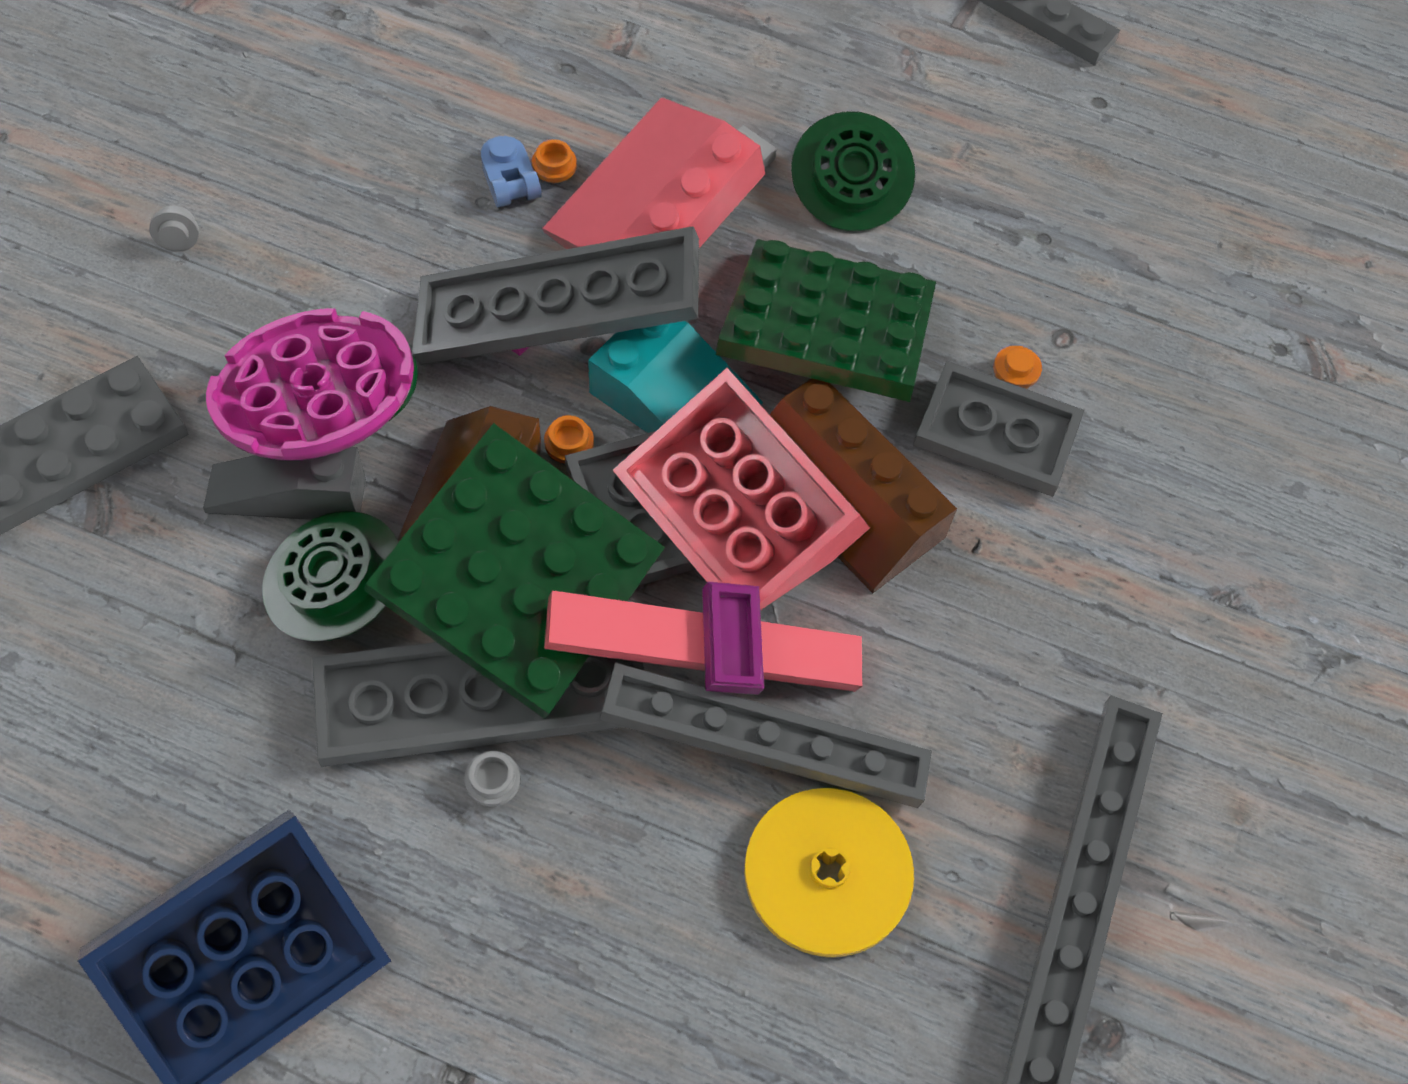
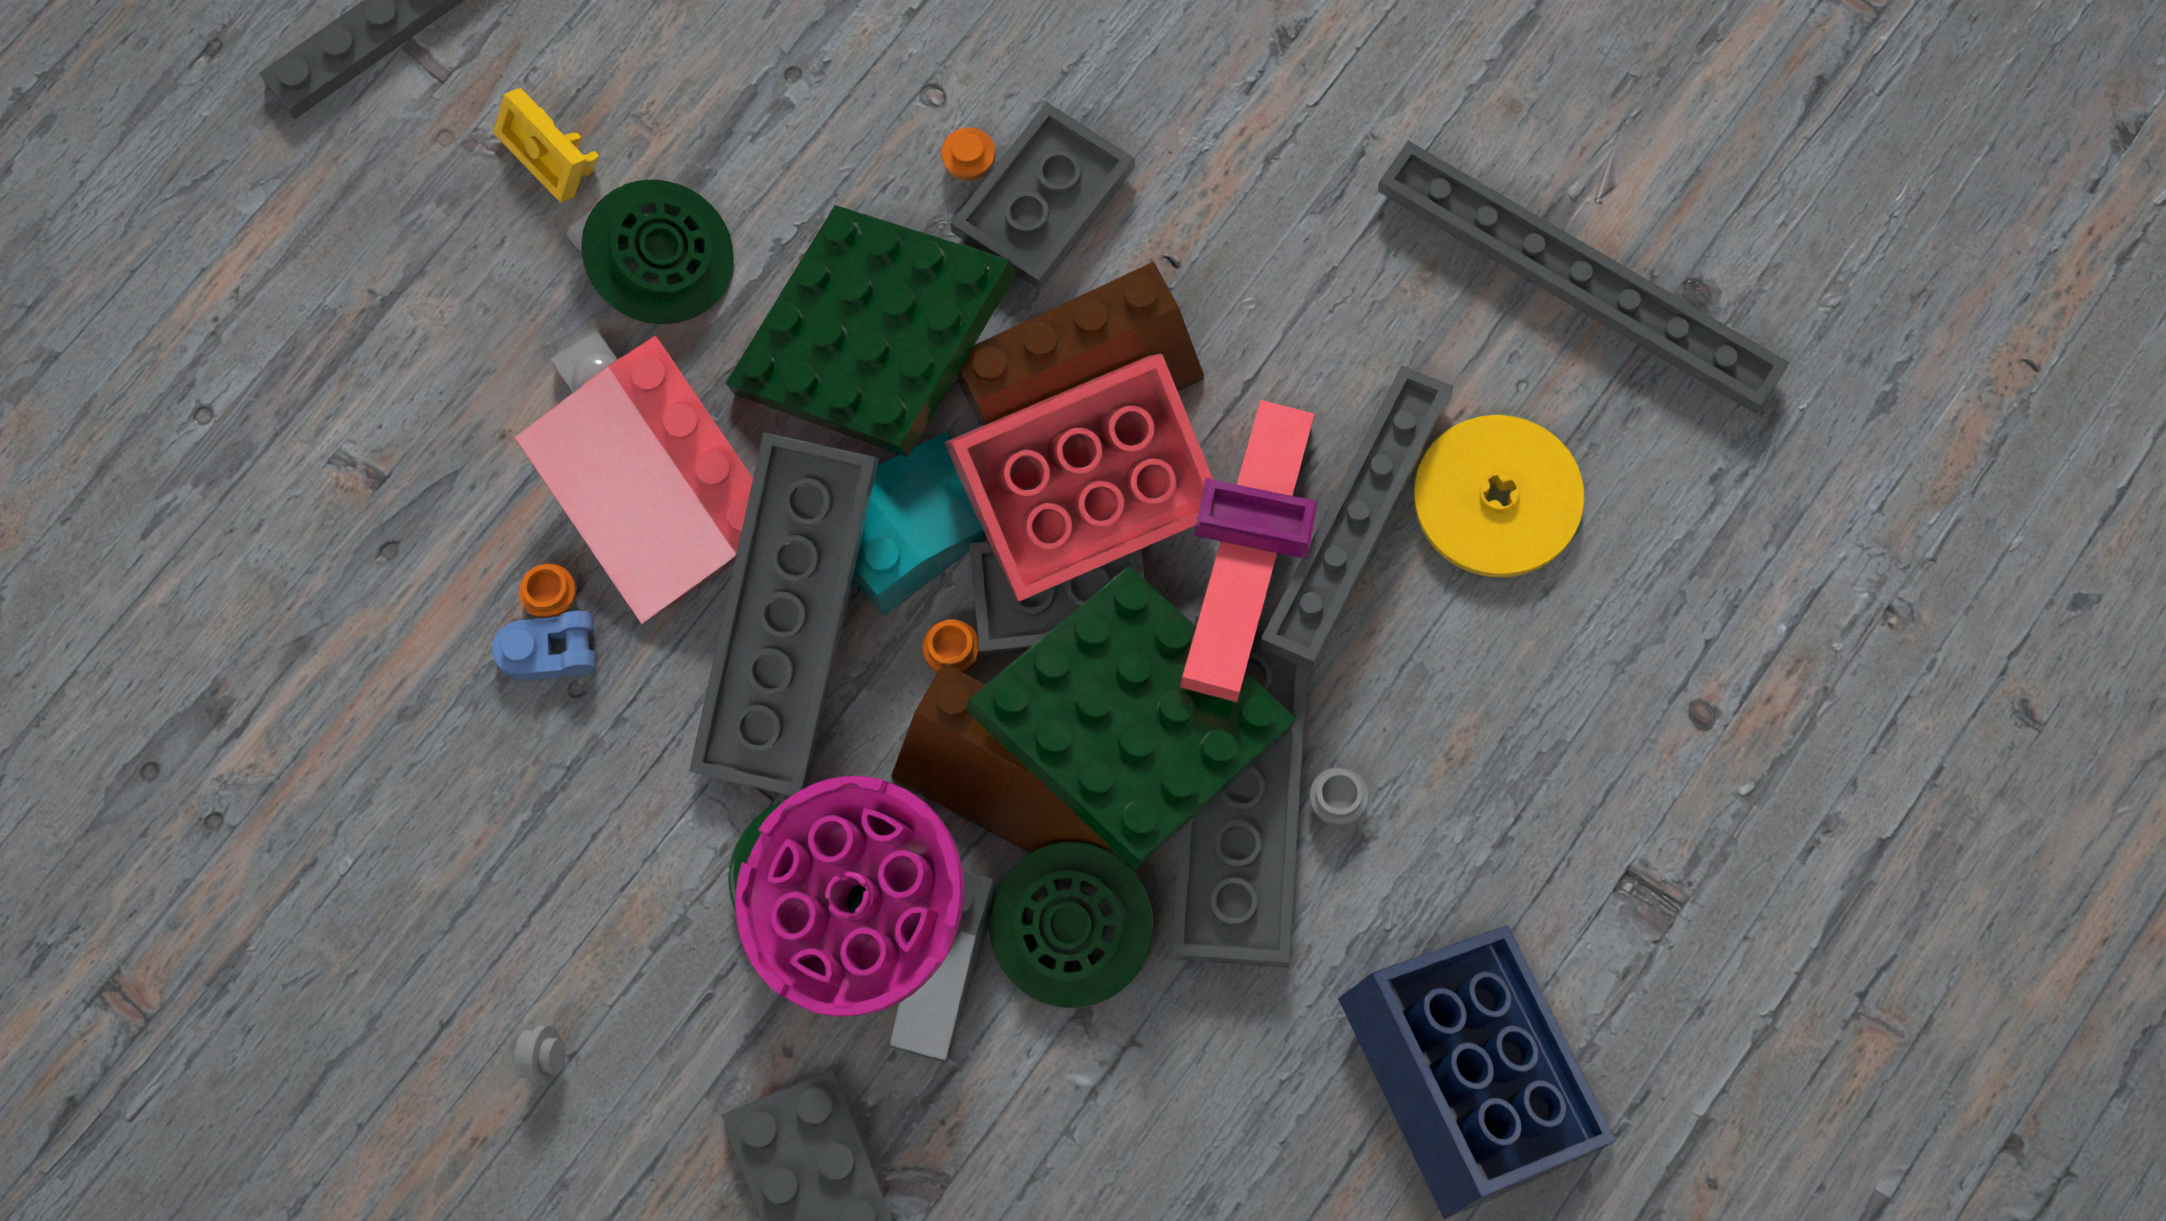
camera: 65 degrees left, 10 degrees up
(909, 94) = (541, 146): none -> yellow plate

